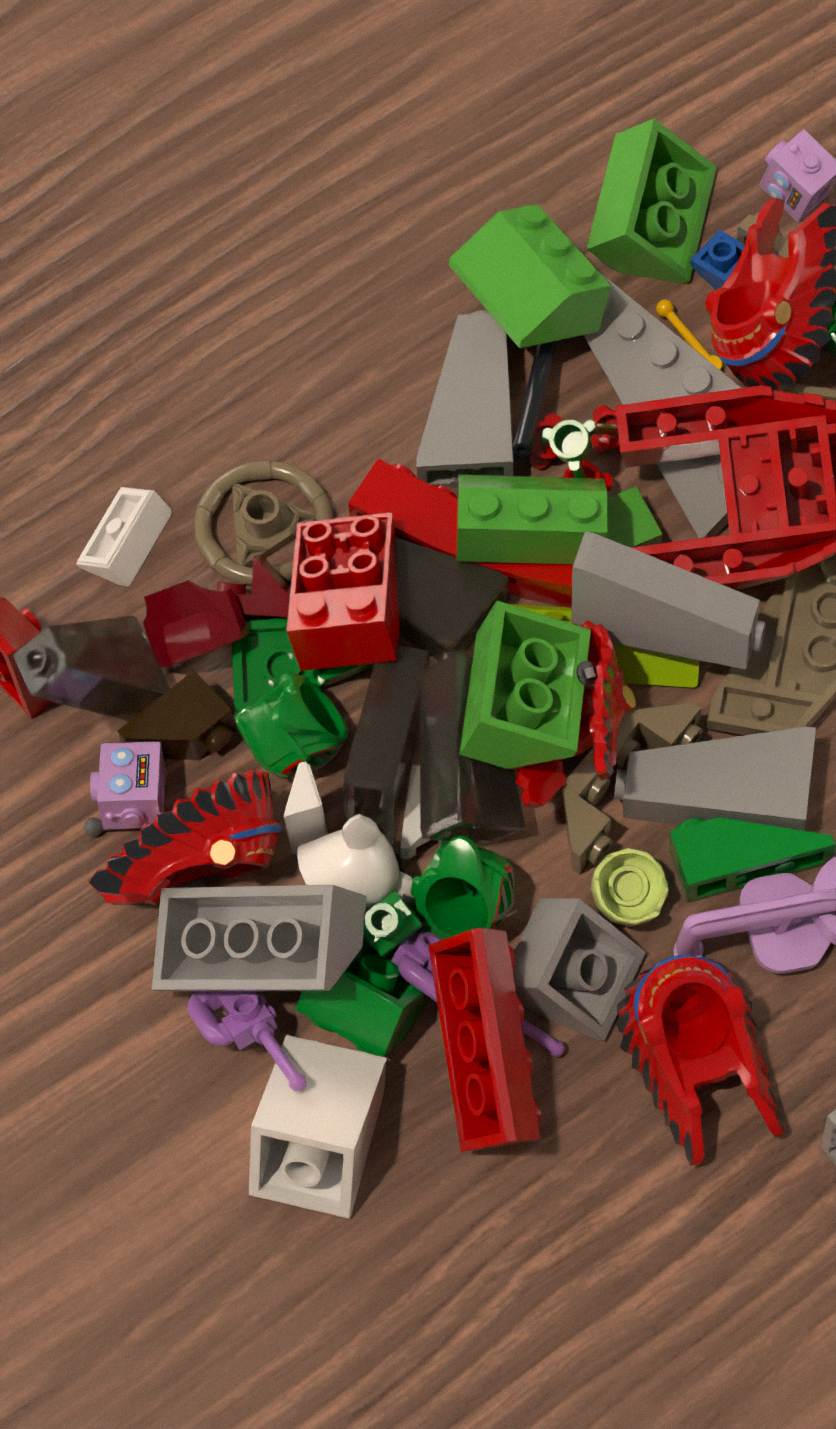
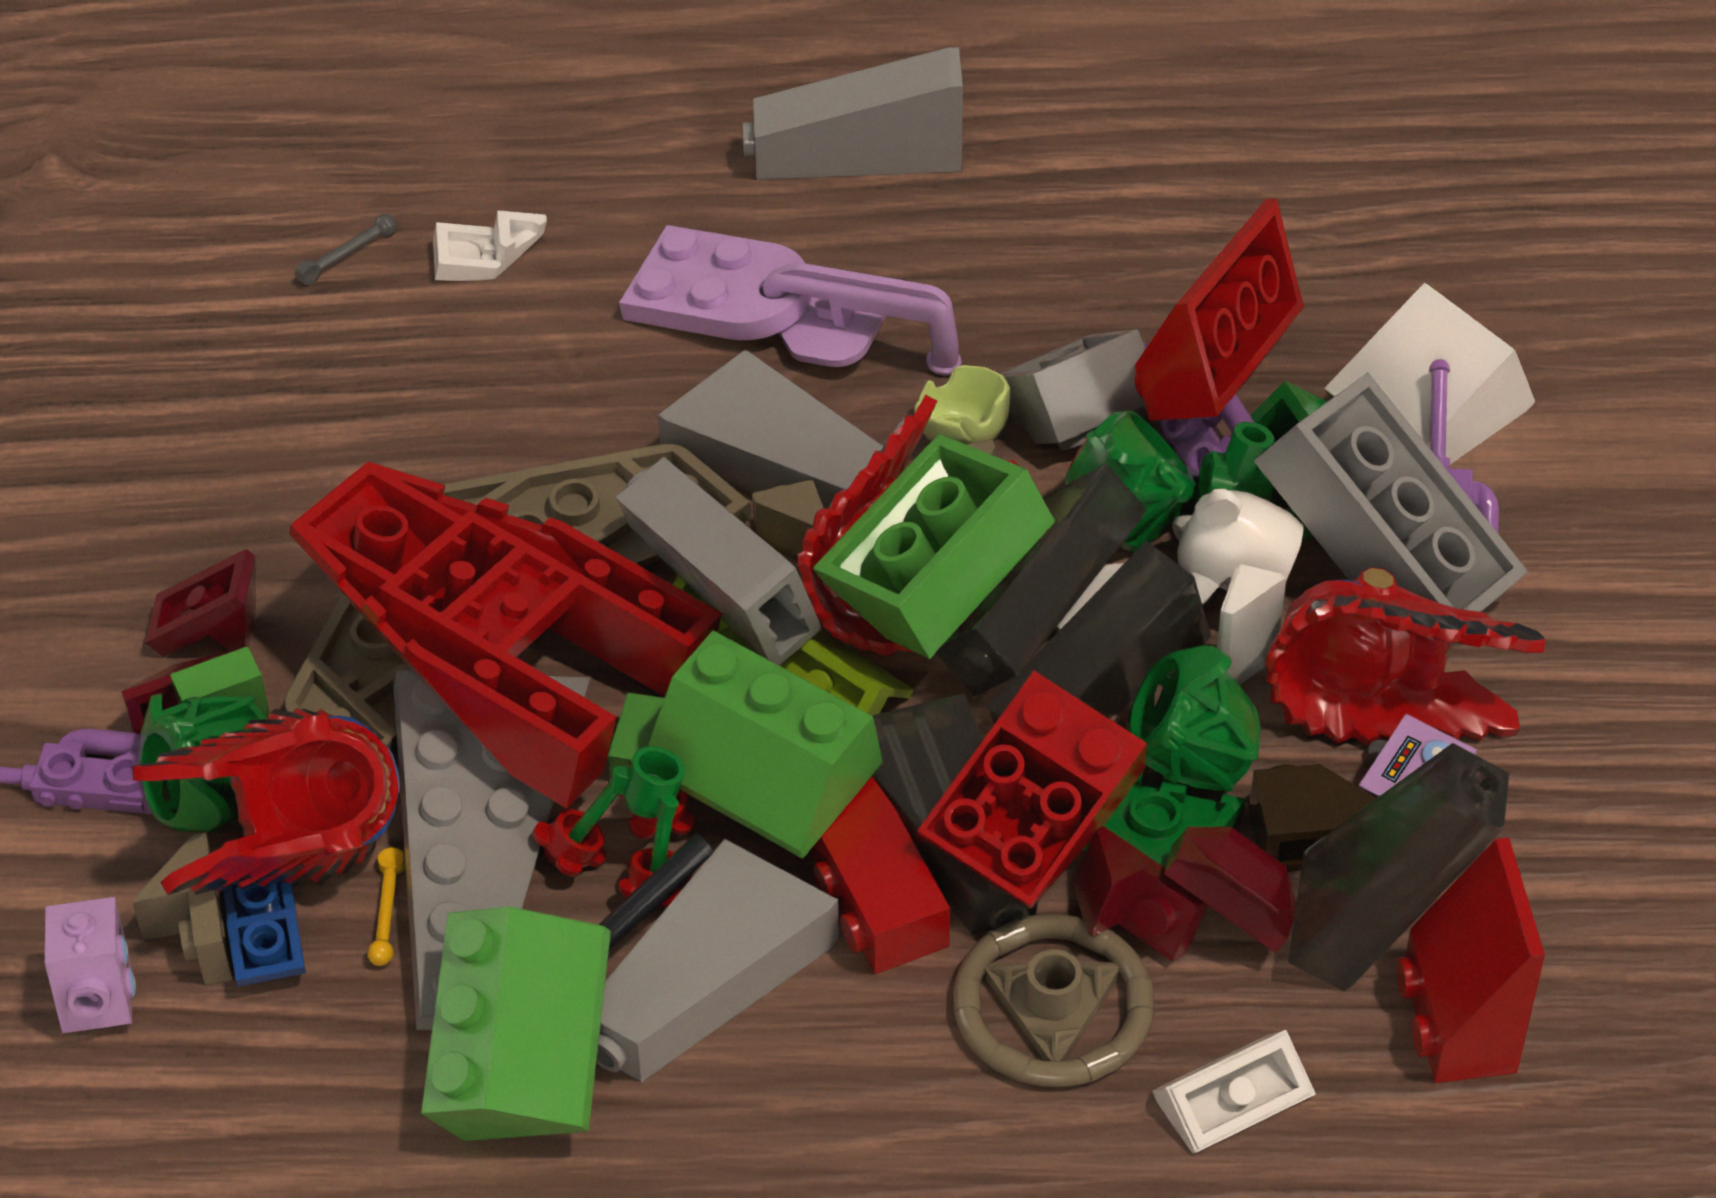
camera: 150 degrees left, 15 degrees down
(586, 673) = (860, 508): black piece -> none
(651, 204) = (284, 1067): bright green slope -> none
(691, 1029) = (1015, 272): red piece -> none
(729, 853) = (850, 380): green slope -> none

